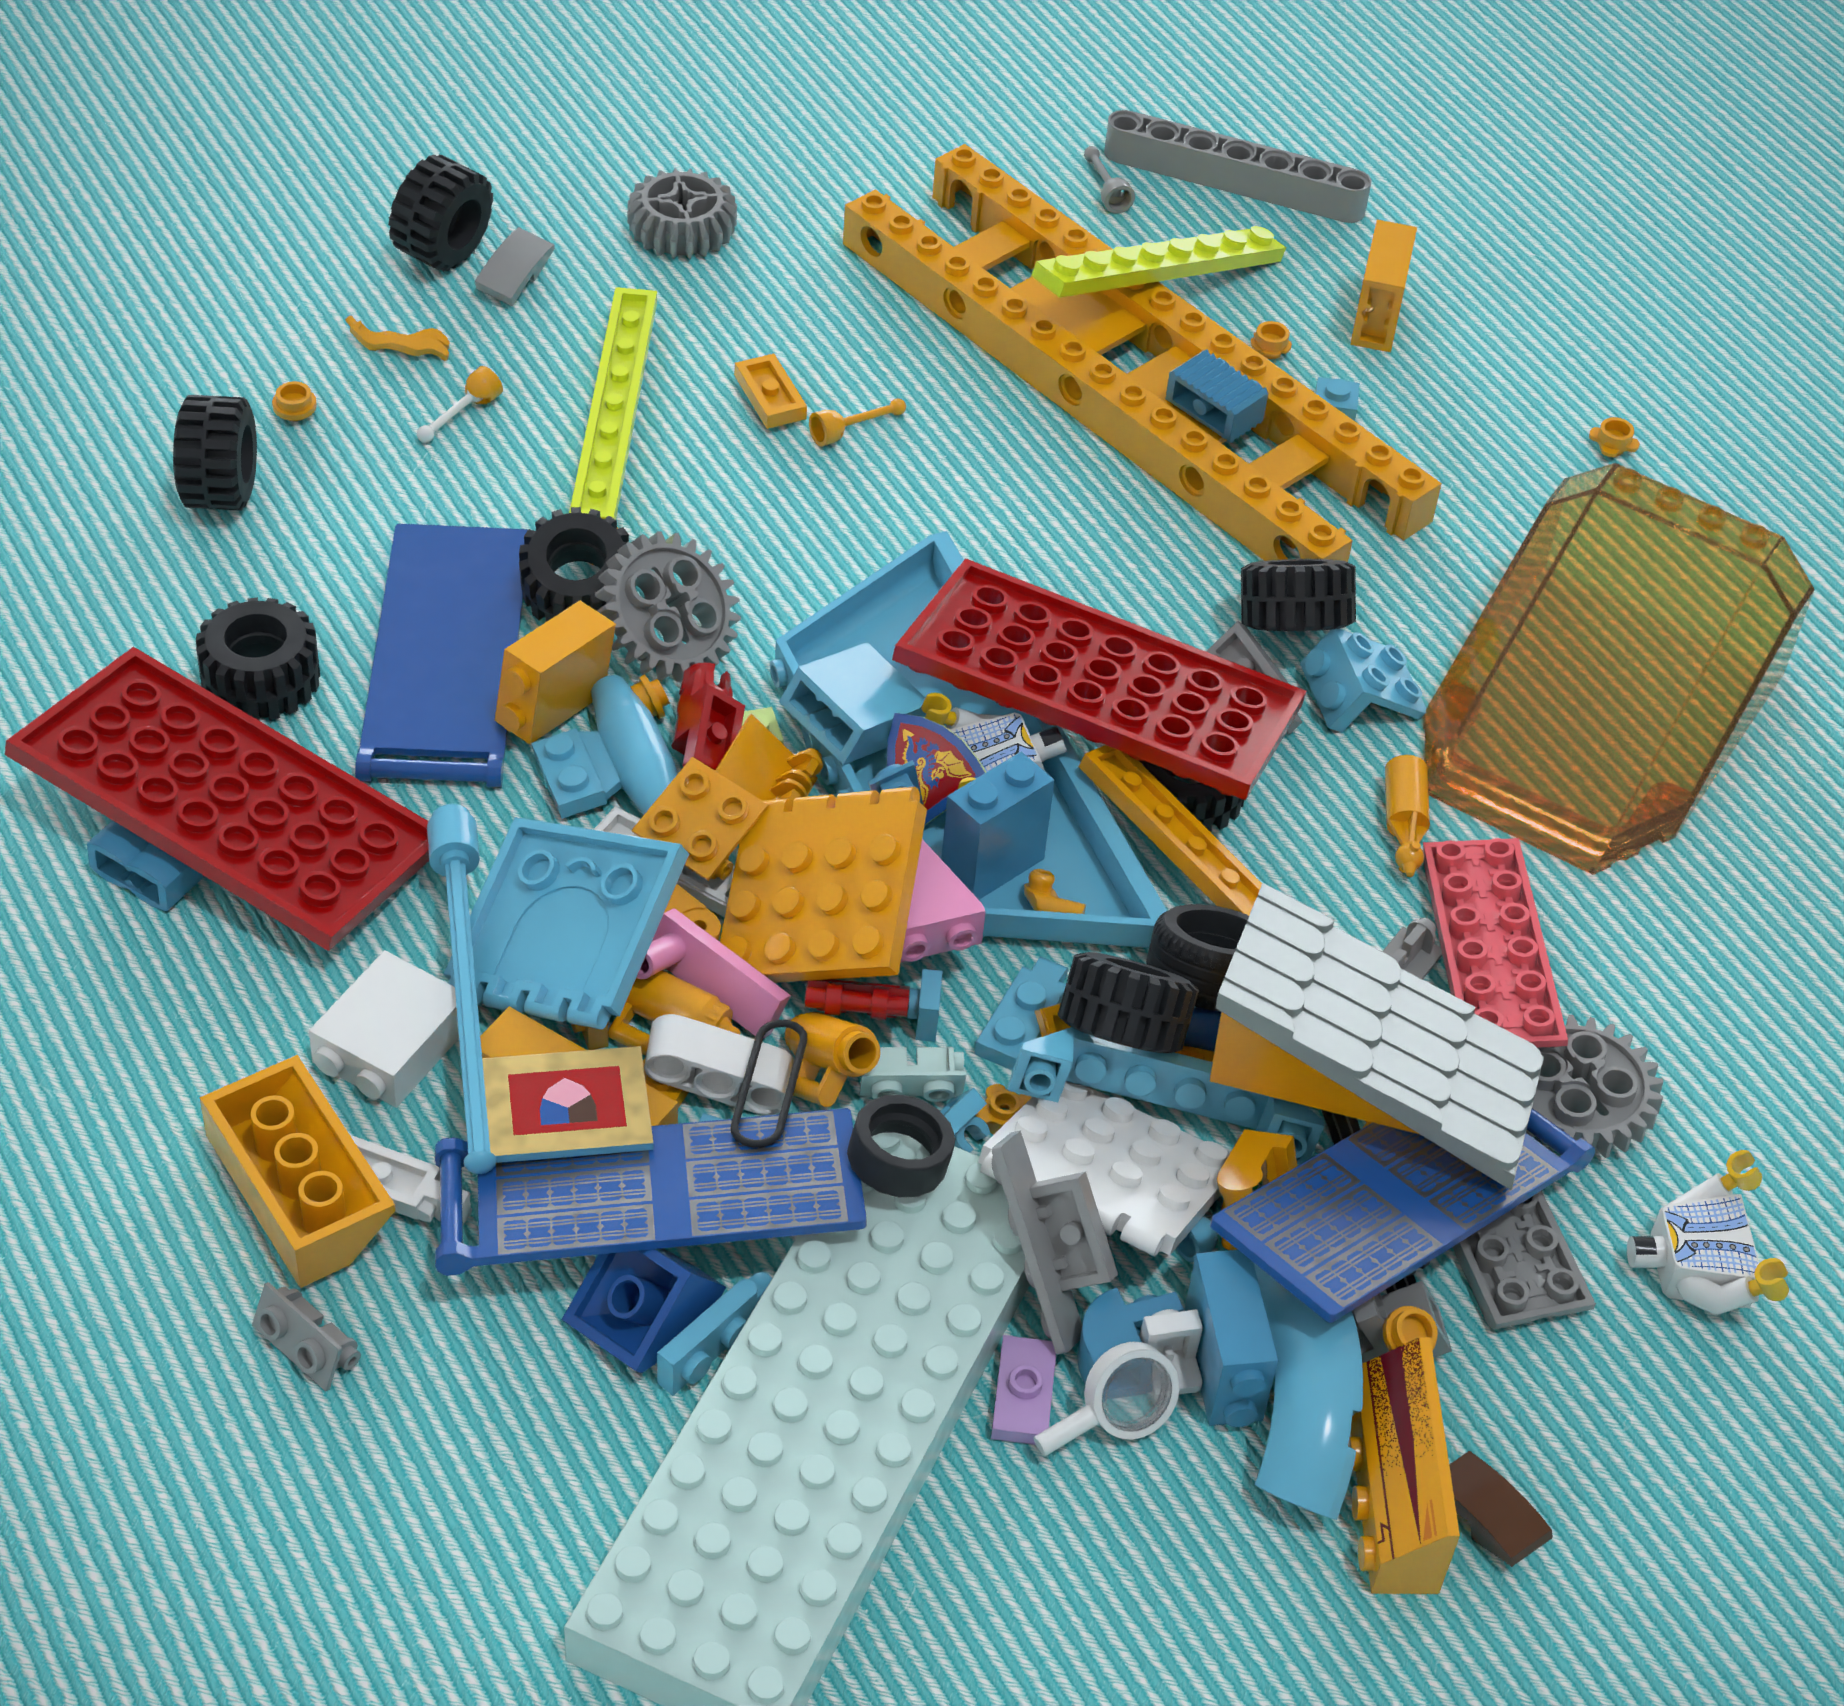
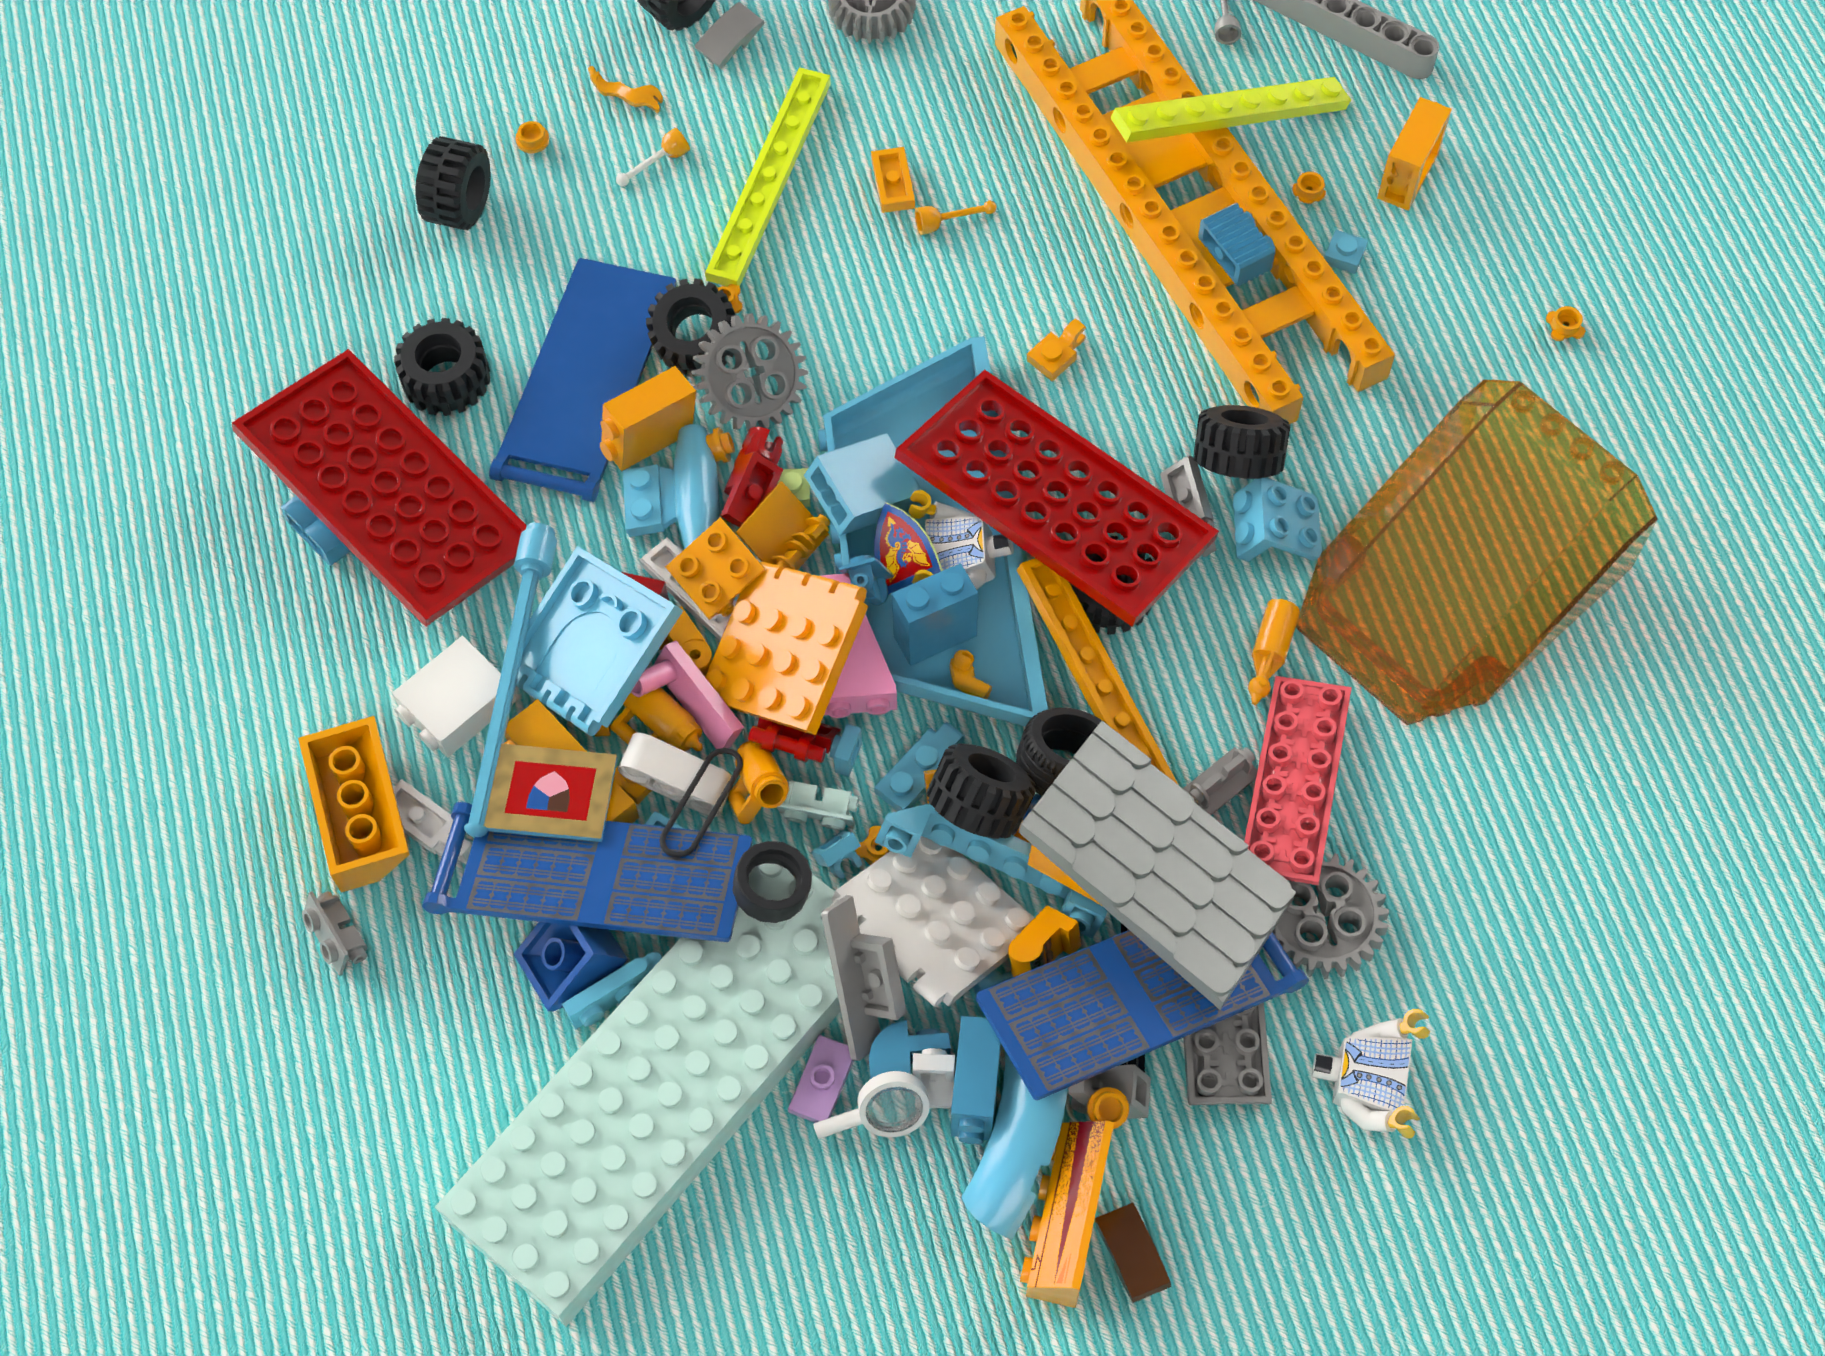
camera: 20 degrees right, 15 degrees up
(1033, 547) = (1056, 354): none -> light orange plate

